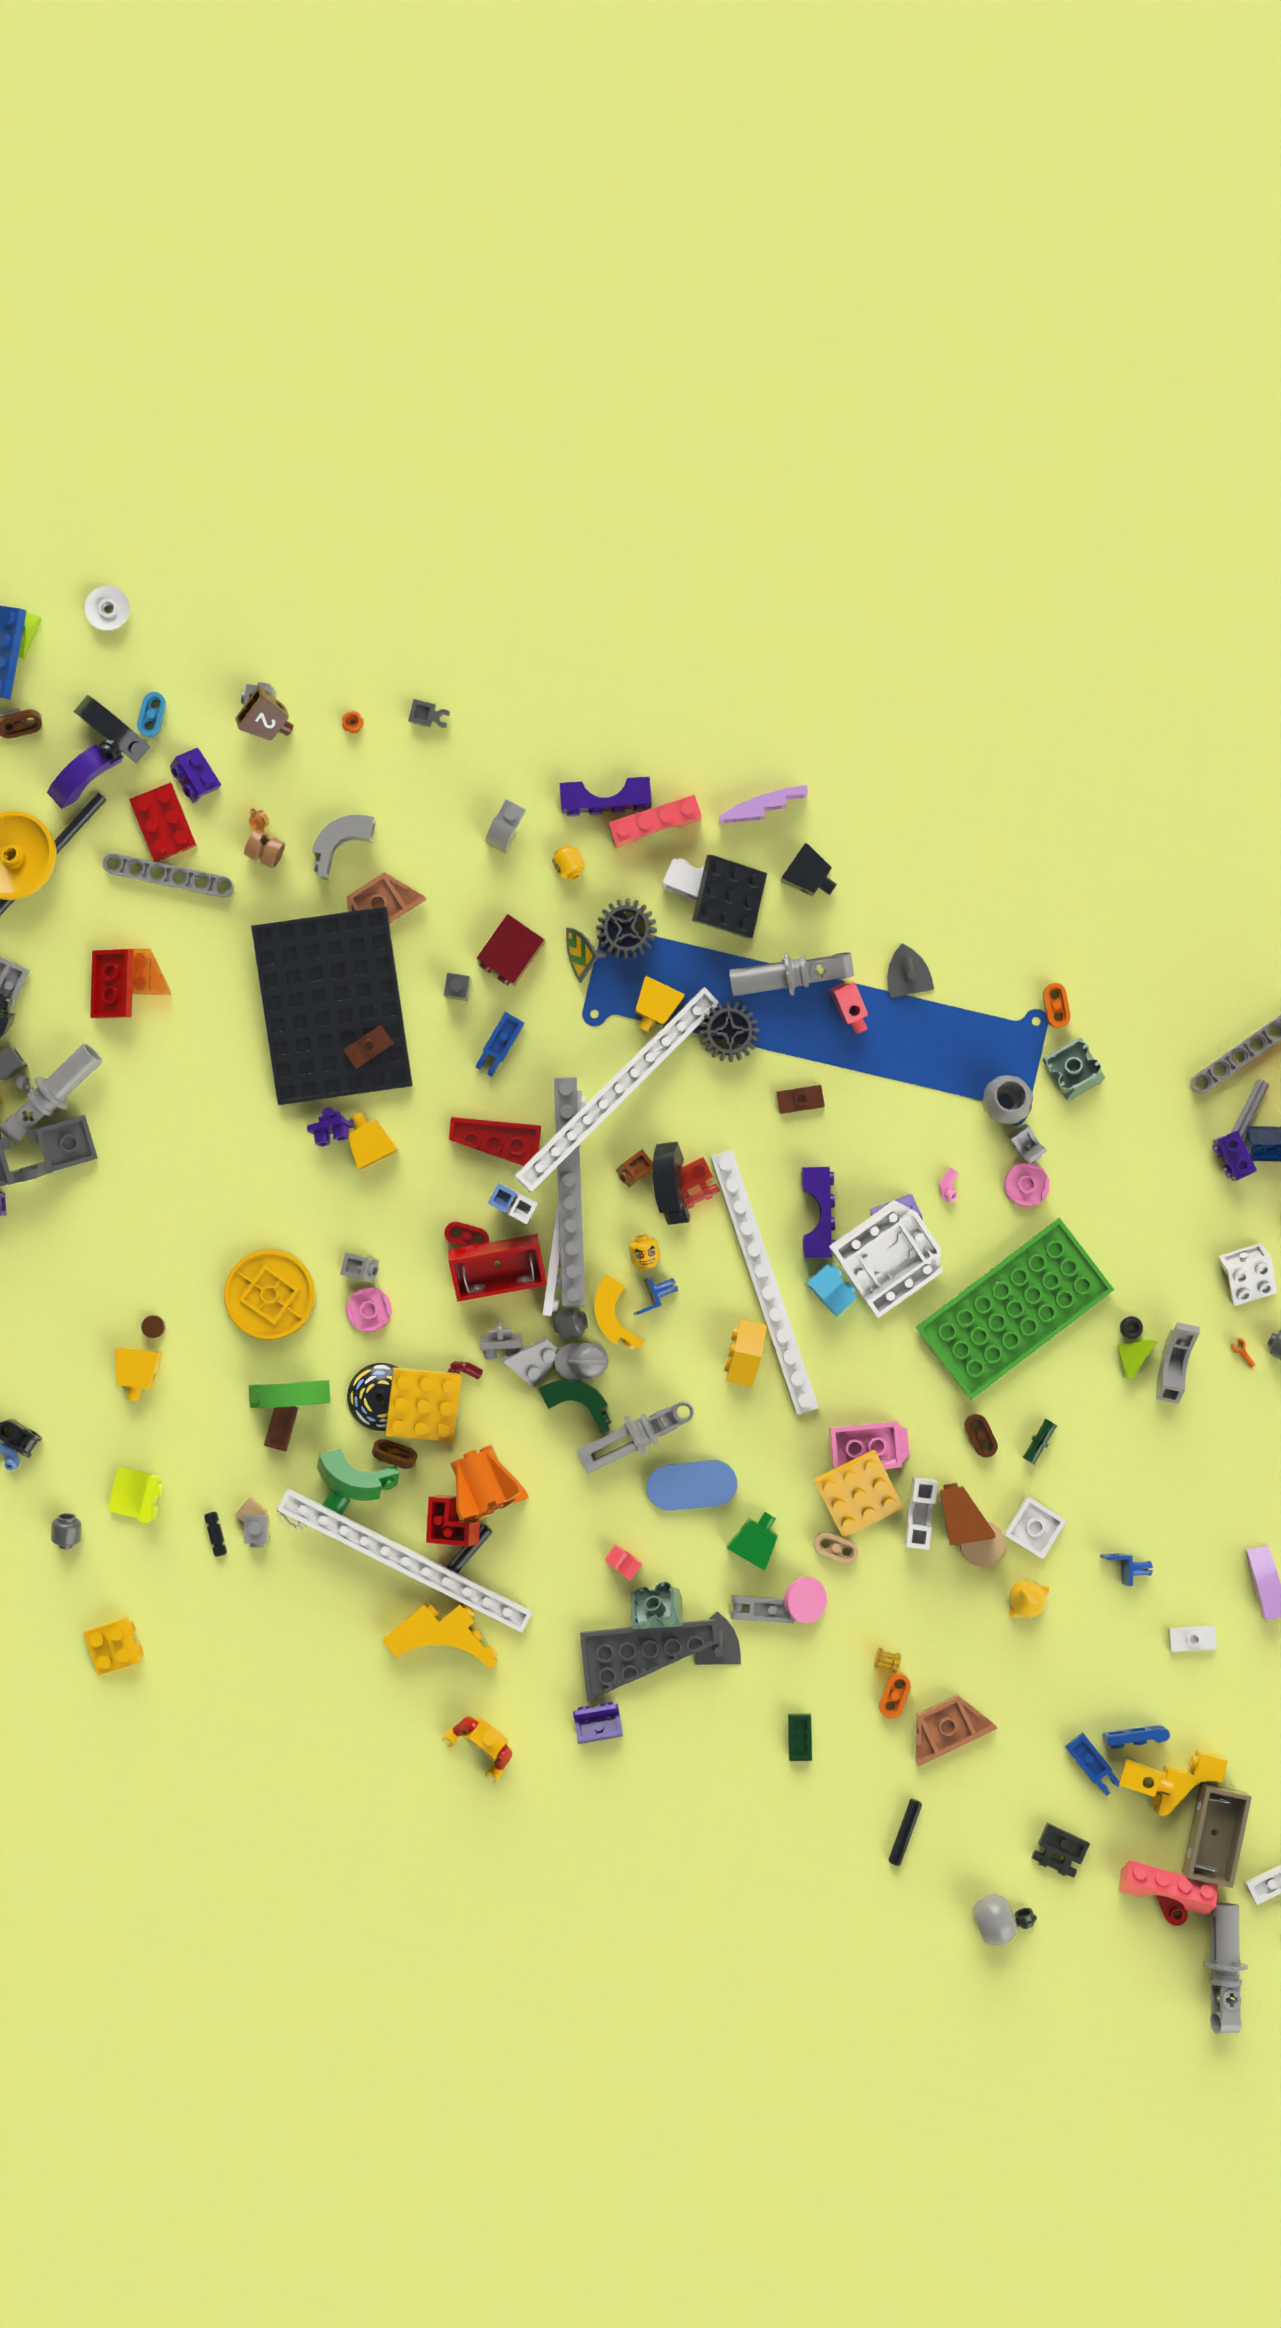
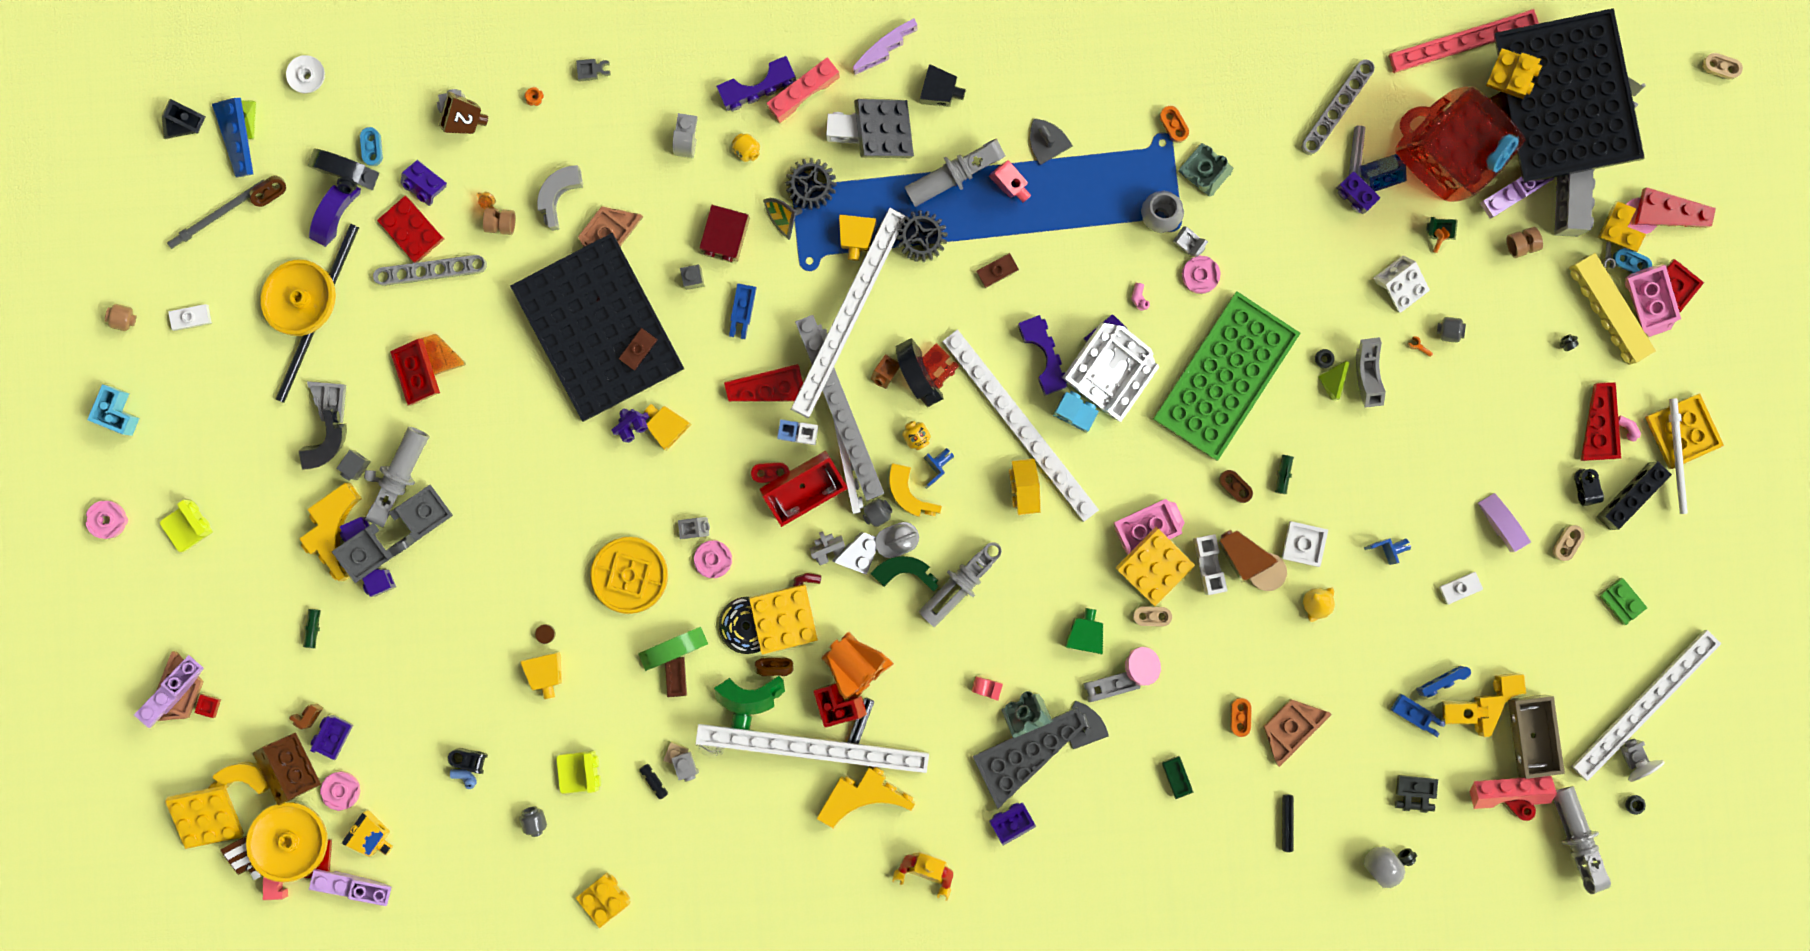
camera: 15 degrees left, 0 degrees up
(691, 1485) = (1020, 607): medium blue tile -> none
(895, 1658) = (1229, 688): clear yellow bush -> none

